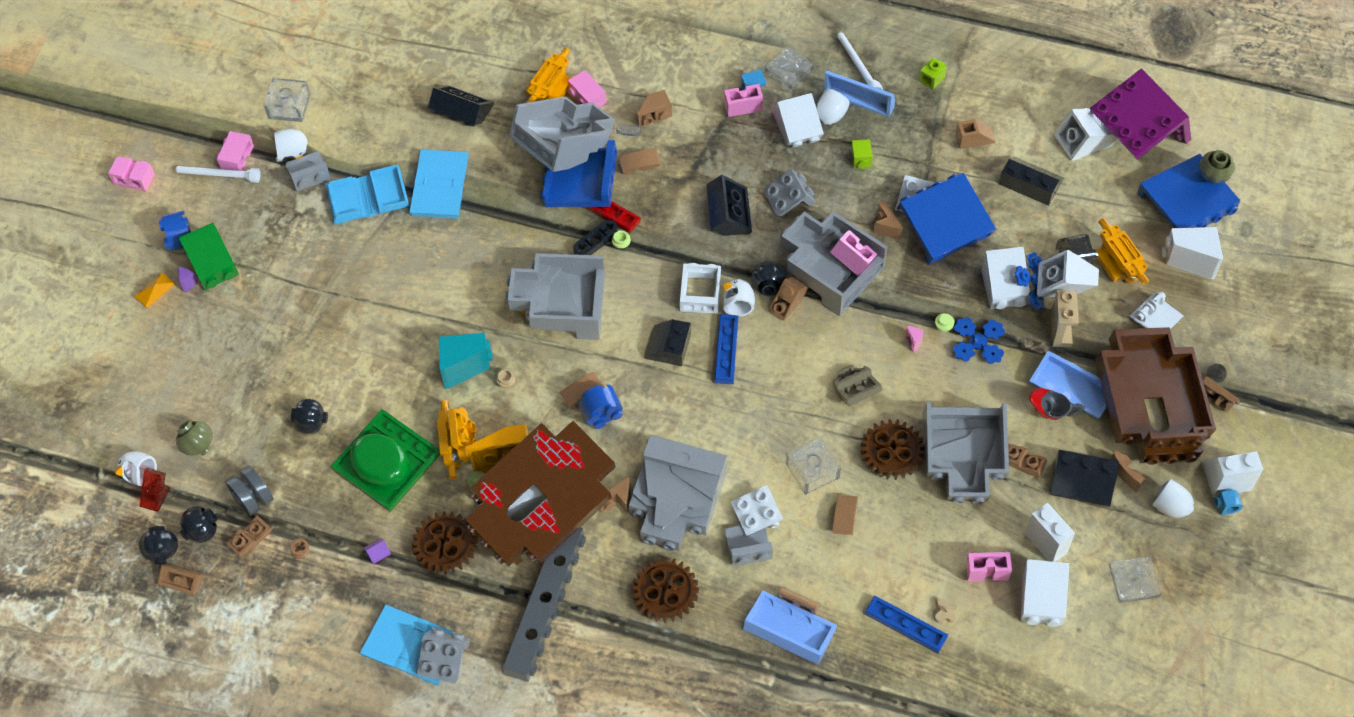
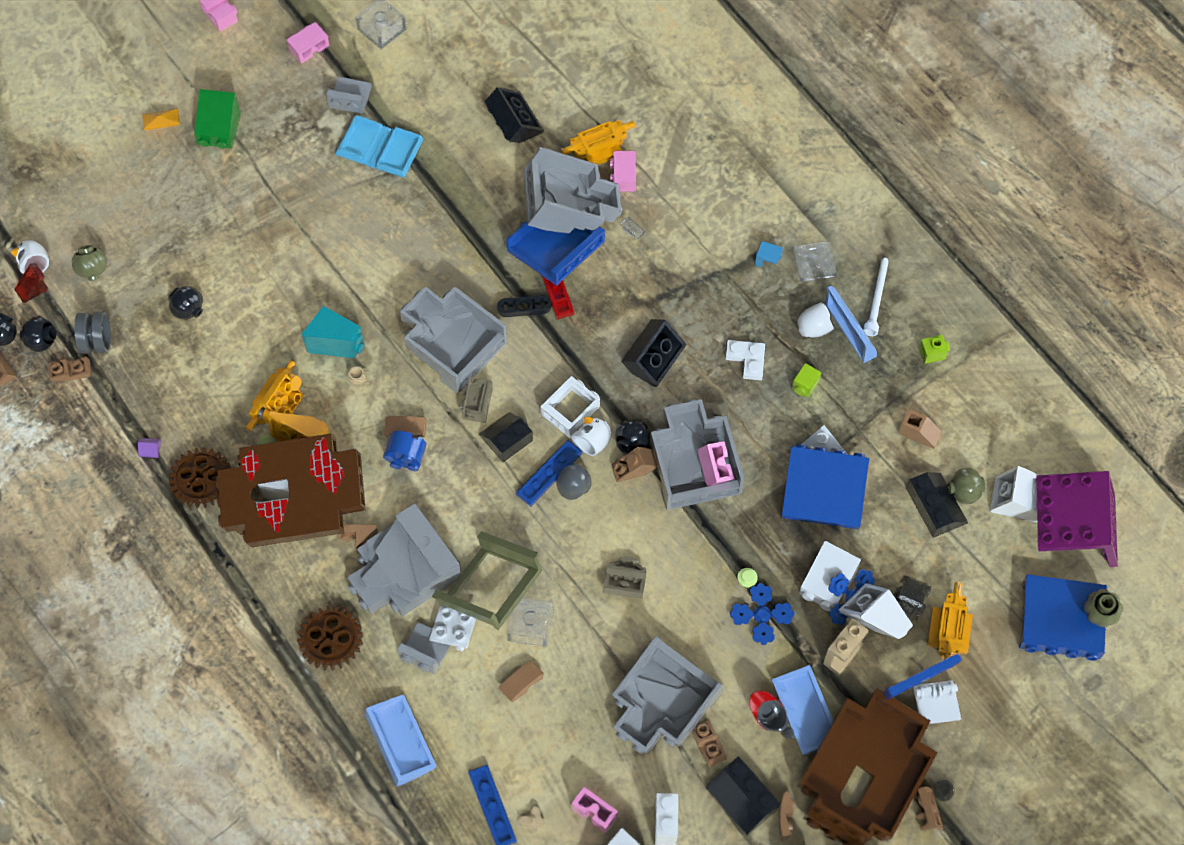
camera: 35 degrees right, 5 degrees up
(174, 227) = (209, 77): blue brick -> none
(186, 279) = (187, 126): medium lavender slope -> none
(252, 175) = (305, 70): white piece -> none
(290, 143) = (351, 62): white piece -> none
(301, 553) = (92, 408): medium nougat bush -> none
(386, 460) = (213, 379): green piece -> none
(398, 641) = (112, 541): medium azure piece -> none
(439, 184) = (441, 174): medium azure piece -> none
(442, 655) = (123, 564): light grey bracket -> none
(539, 615) = (218, 589): dark grey piece -> none
(621, 239) = (544, 320): yellowish green plate -> none
(622, 332) = (476, 400): none -> dark tan hinge
(641, 159) = (615, 260): medium nougat slope -> none
(654, 108) = (666, 223): medium nougat slope -> none
(743, 101) = (744, 266): bright pink brick -> none
(750, 425) = (504, 550): none -> olive piece
(752, 341) = (573, 481): none -> dark grey helmet
(788, 192) = (716, 372): light grey bracket -> none
(798, 120) = (776, 315): white slope -> none
(798, 600) = (425, 723): medium nougat slope -> none
(803, 163) = (751, 354): none -> white plate
(888, 223) = (773, 458): medium nougat slope -> none
(891, 433) = (596, 668): reddish brown gear -> none
(914, 337) = (709, 573): bright pink slope -> none
(1042, 151) = (966, 486): none -> olive plant
(1140, 297) = (922, 676): none -> blue tile
(1194, 250) = (1018, 667): white slope -> none

